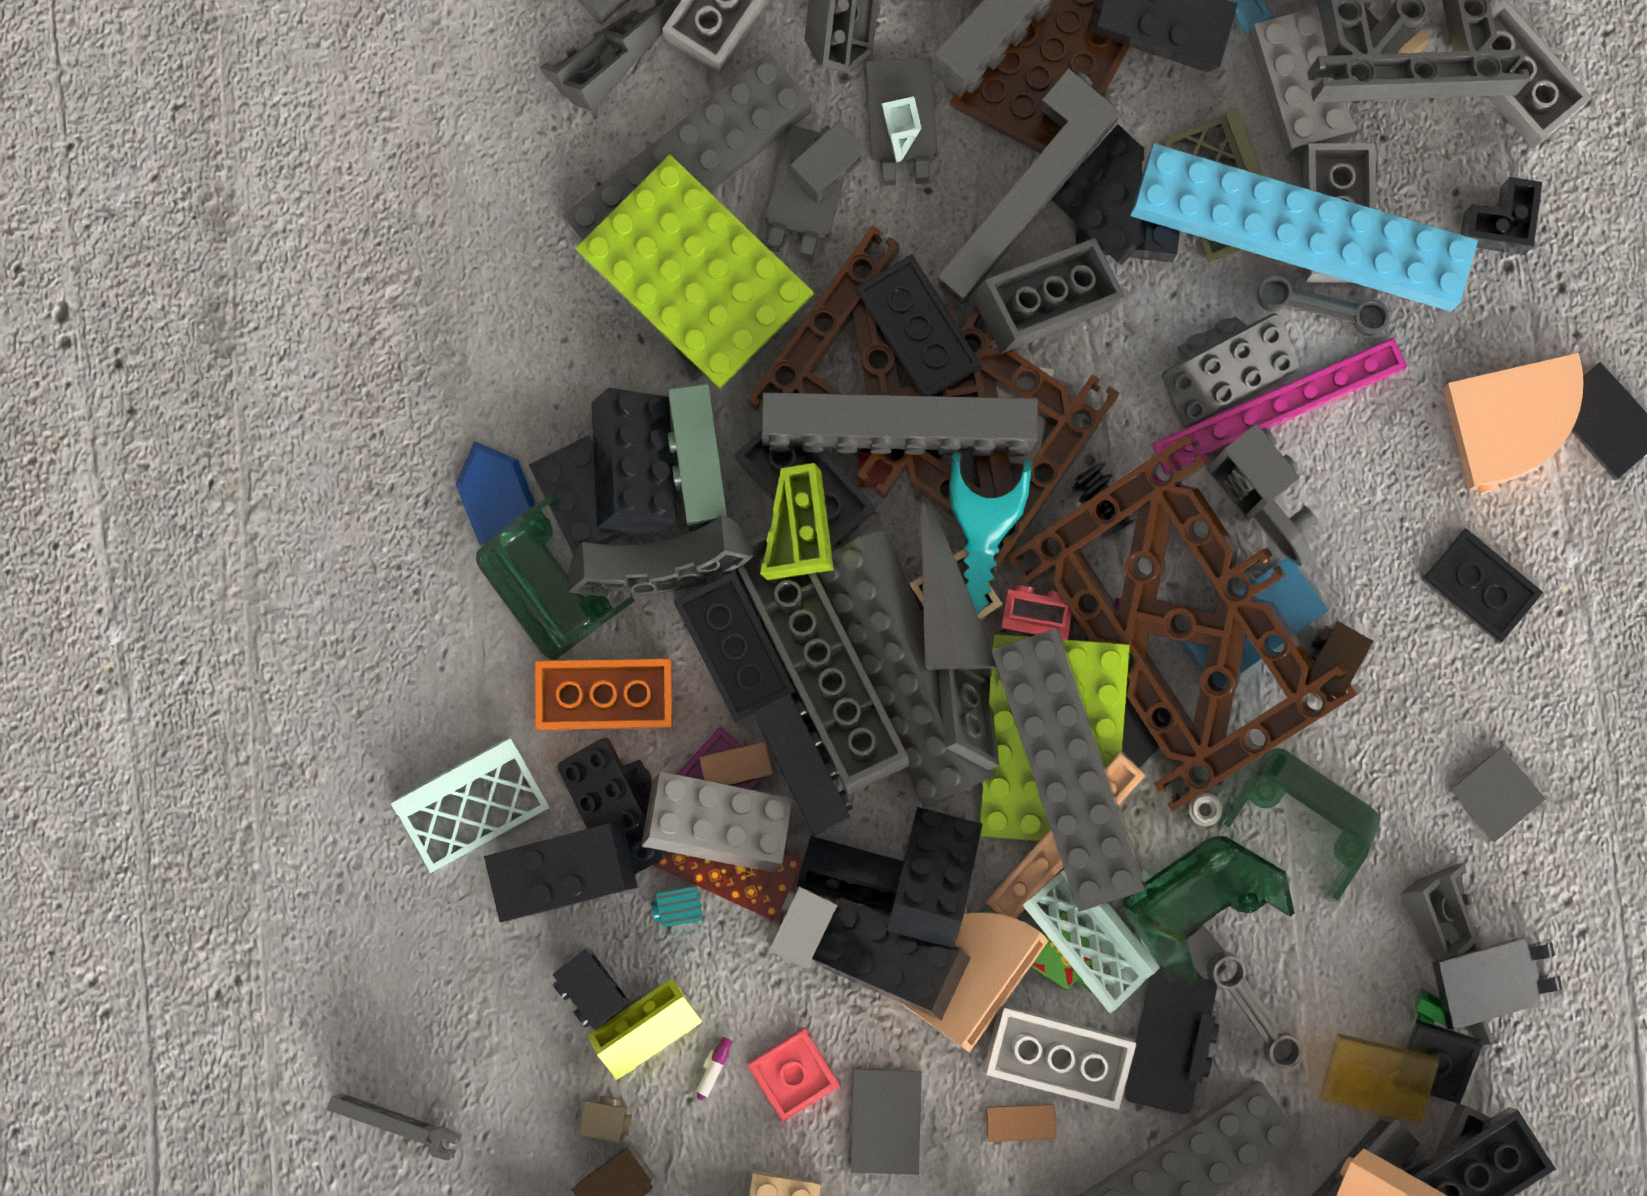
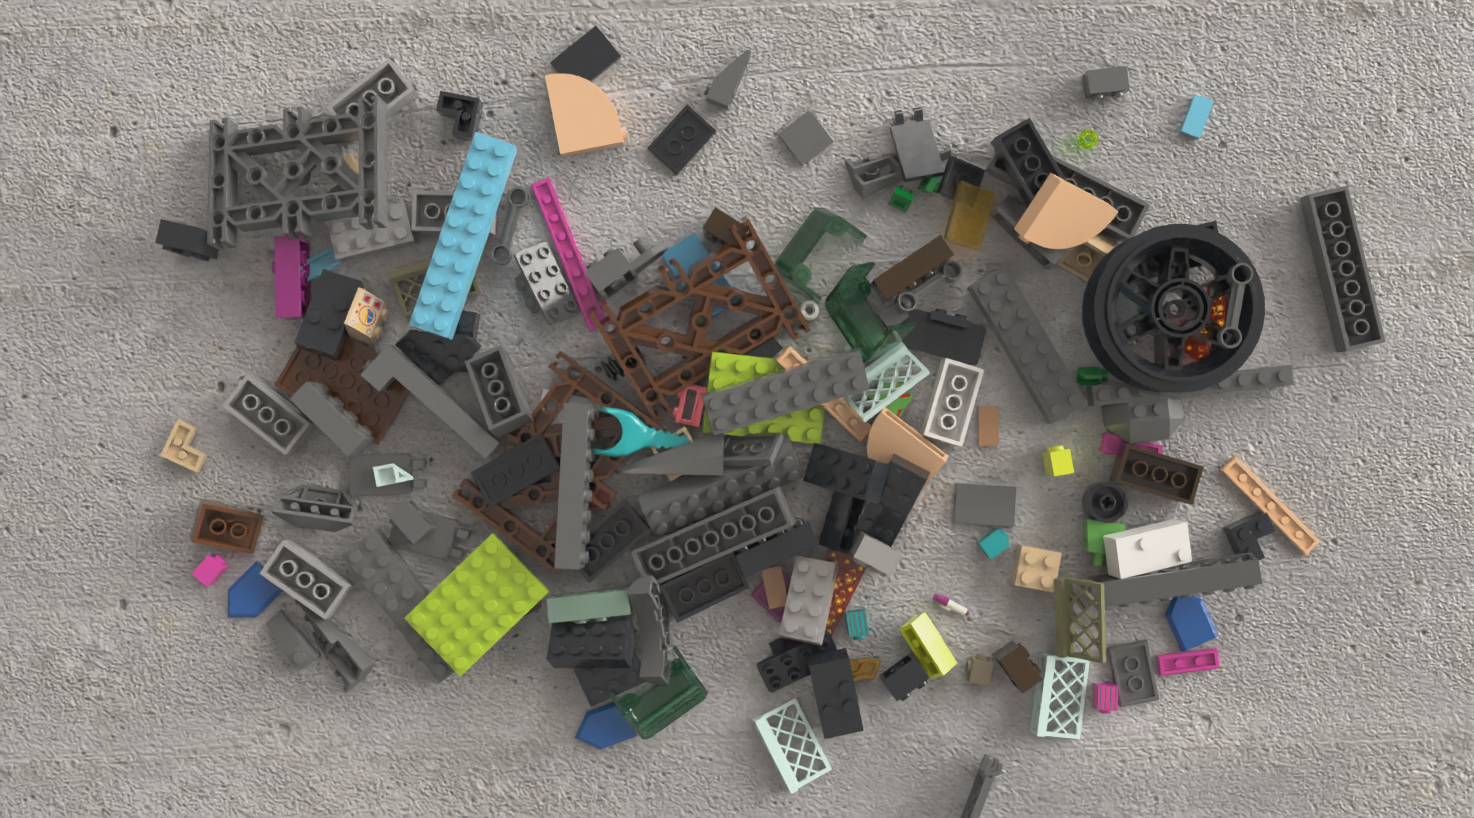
camera: 85 degrees left, 5 degrees up
(601, 921) = (864, 668): none -> pearl gold tile
(604, 695) = (730, 664): orange brick -> none
(793, 1075) = (956, 558): coral tile -> none
(799, 526) = (634, 547): lime wedge -> none
(822, 1138) = (994, 543): none -> teal brick
(1161, 75) = (366, 317): none -> tan slope
(1284, 980) = (912, 268): none -> dark brown brick
(1402, 960) = (901, 199): none -> green tile
(1584, 658) = (725, 85): none -> dark grey slope

